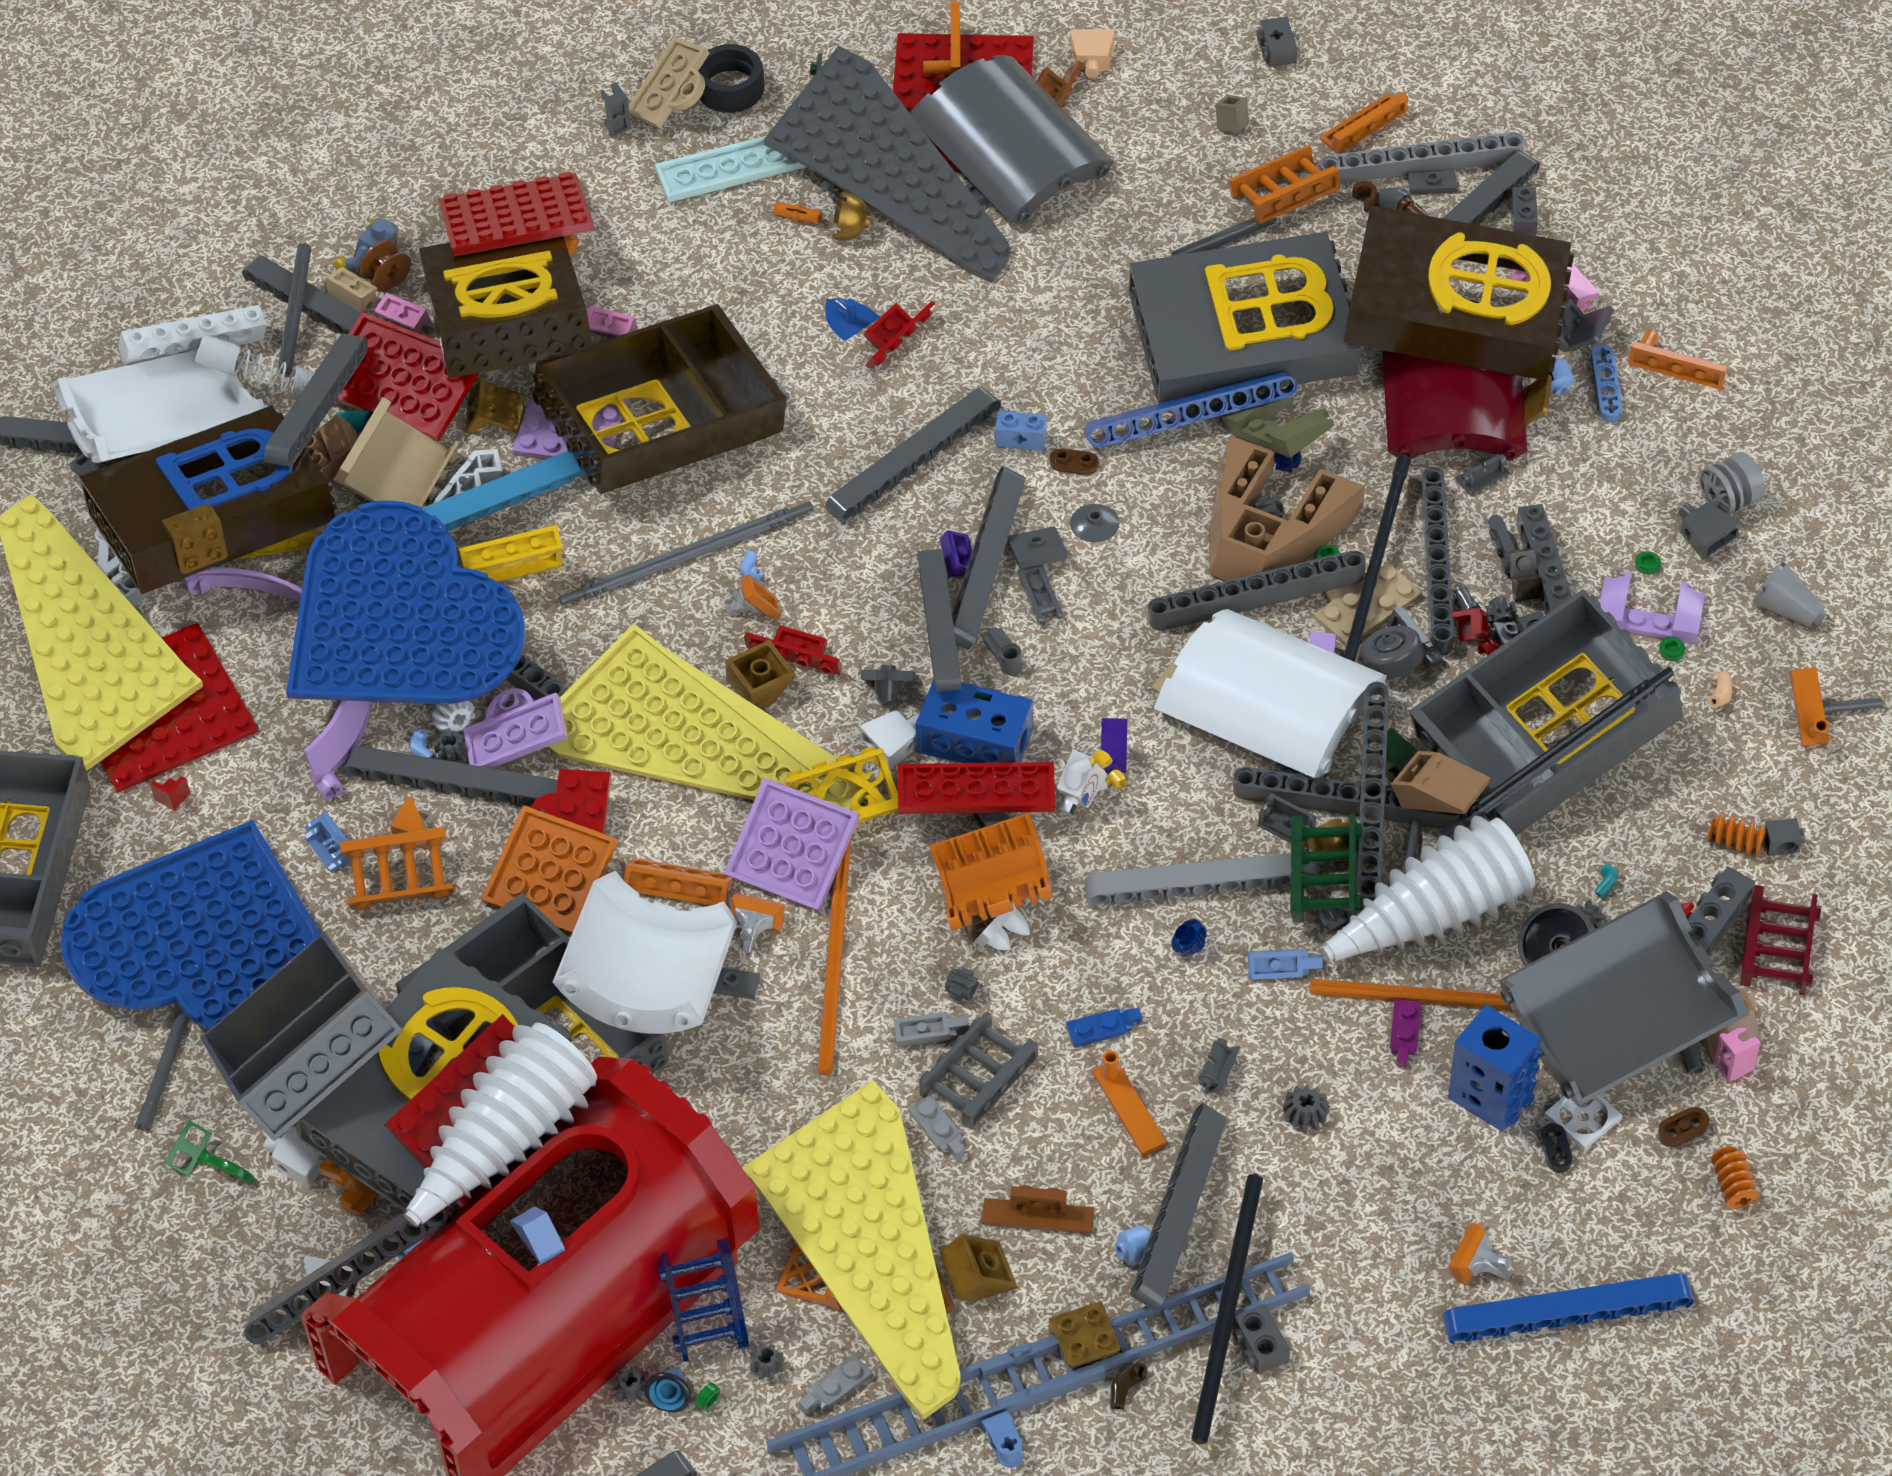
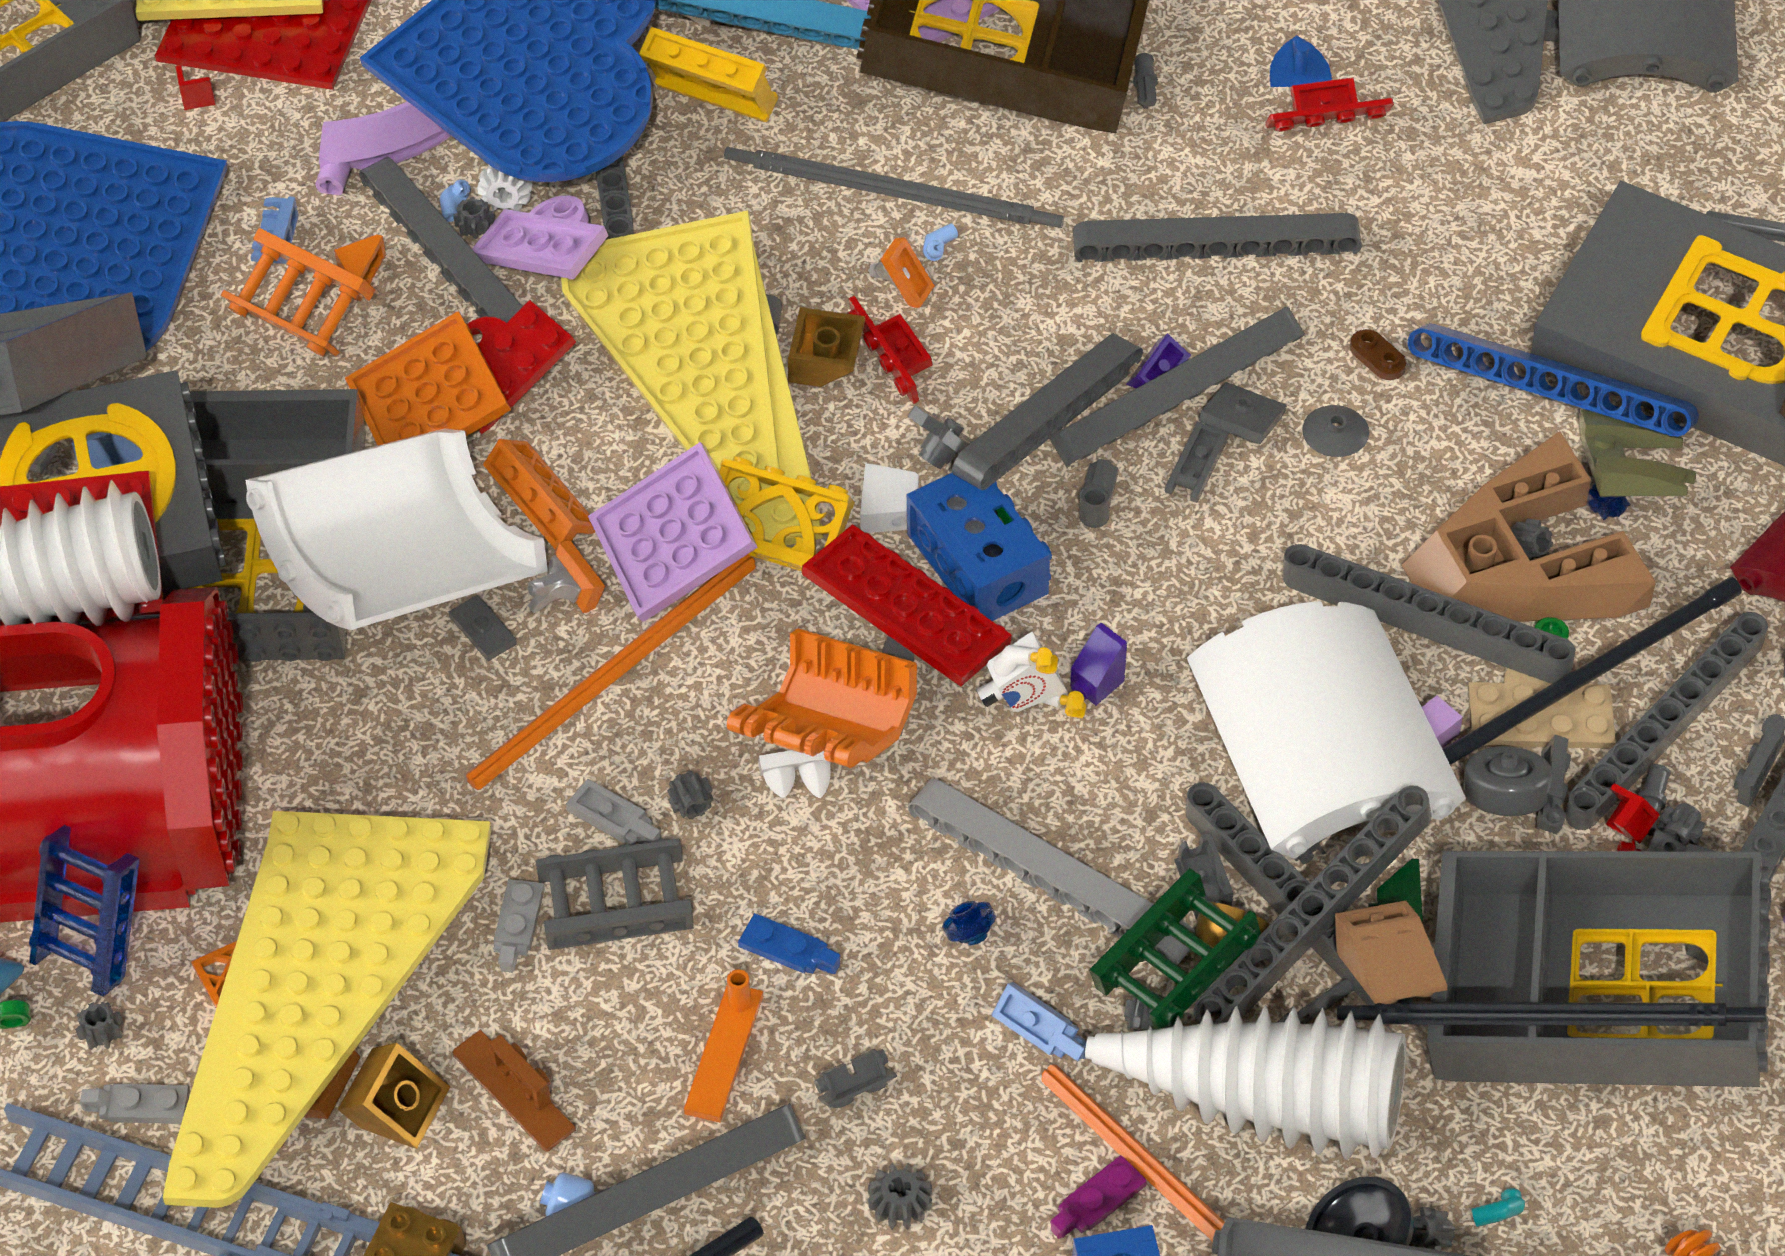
camera: 40 degrees right, 0 degrees up
(1021, 430) = (1350, 285): medium blue brick -> none
(1524, 575) = (1746, 801): dark brown slope -> none

